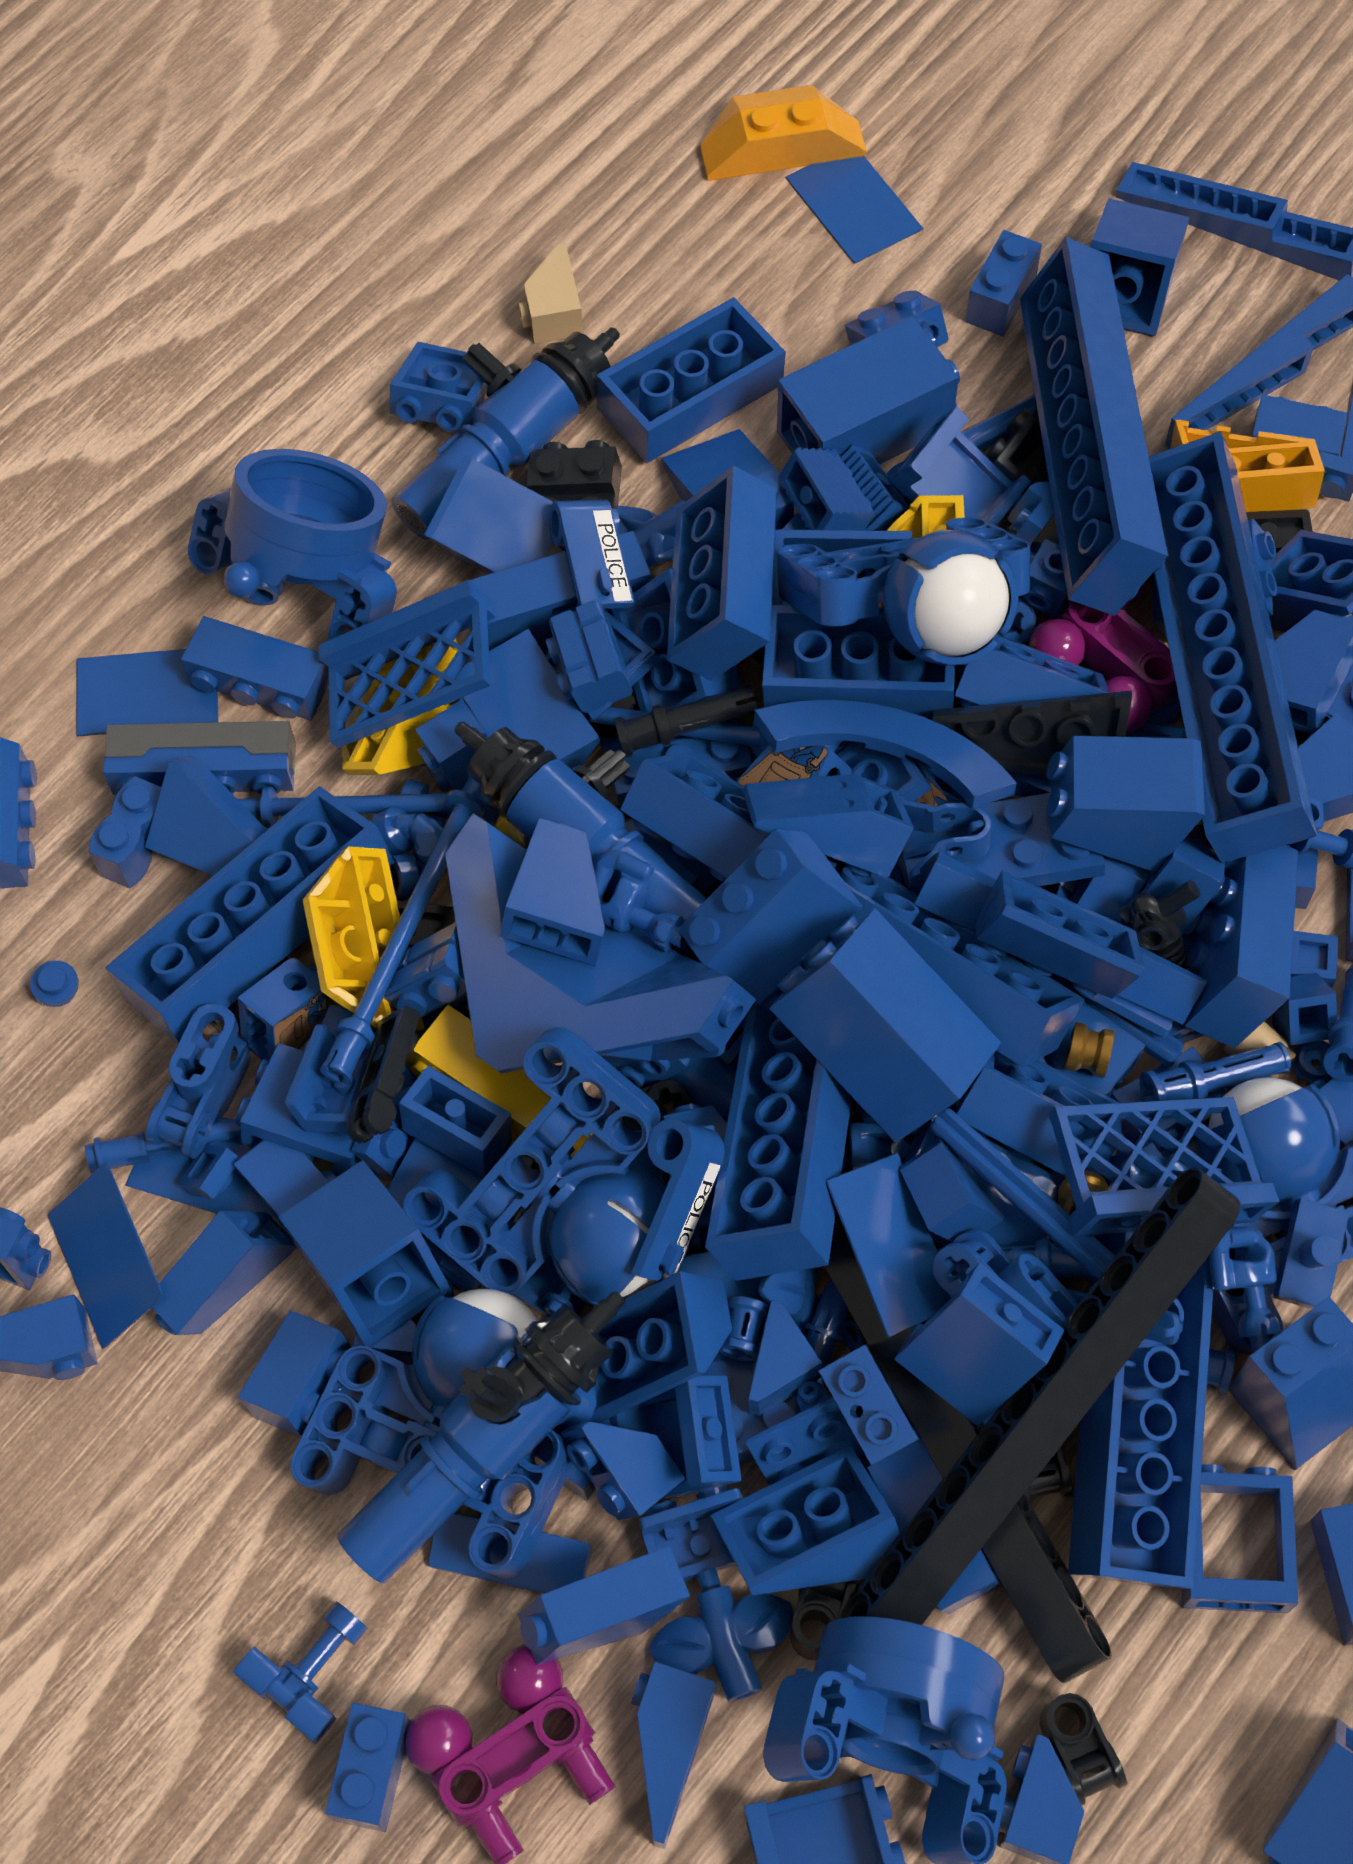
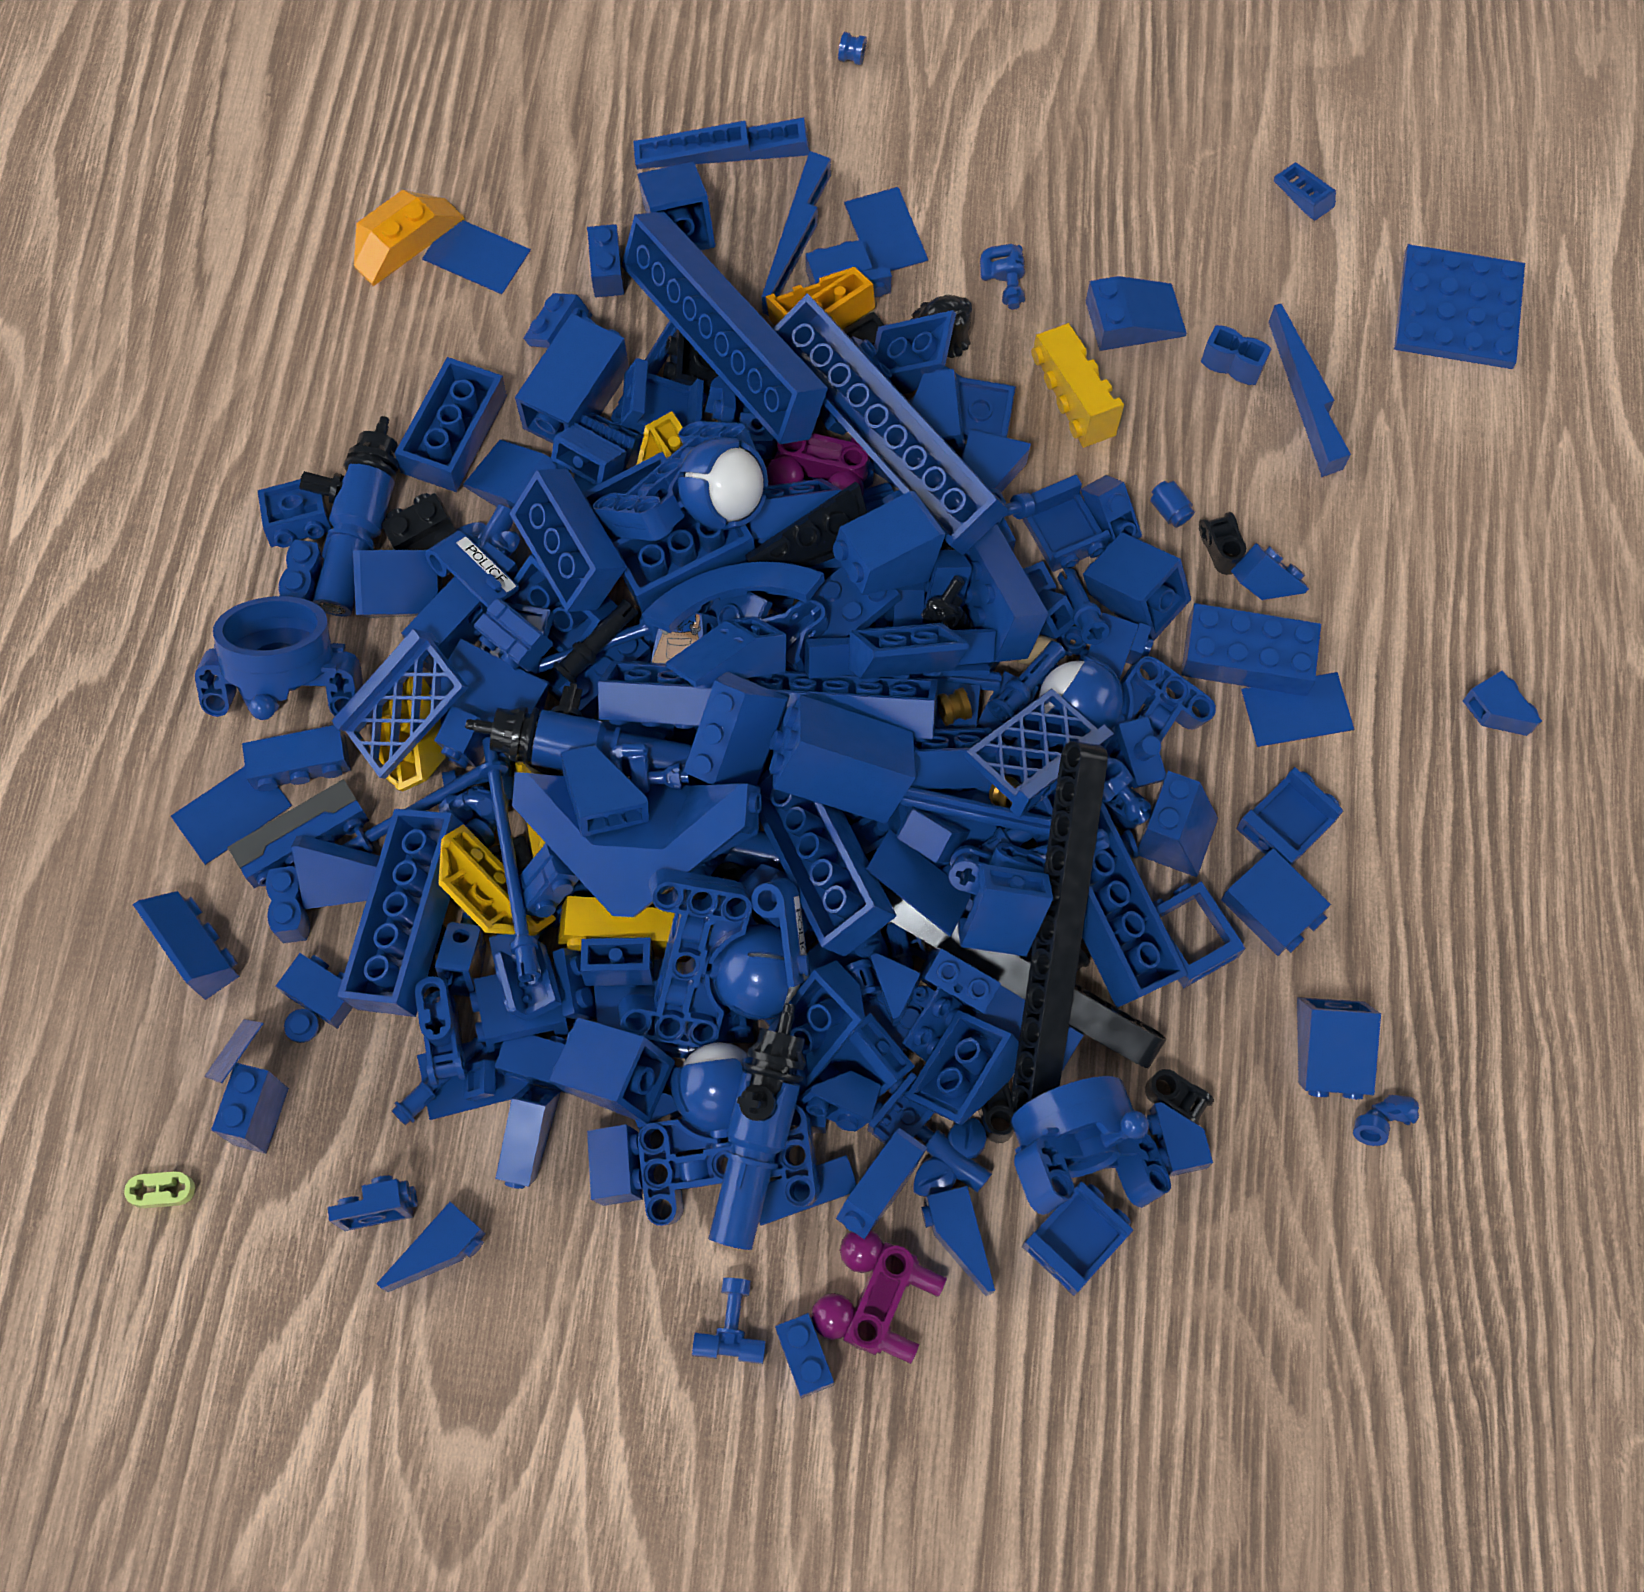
camera: 35 degrees left, 5 degrees up
(92, 940) = (315, 989): none -> blue brick
(105, 1255) = (450, 1167): blue piece -> none
(382, 1075) = (558, 961): black hinge -> none
(402, 458) = (303, 570): none -> blue brick
(552, 299) = (327, 417): tan slope -> none

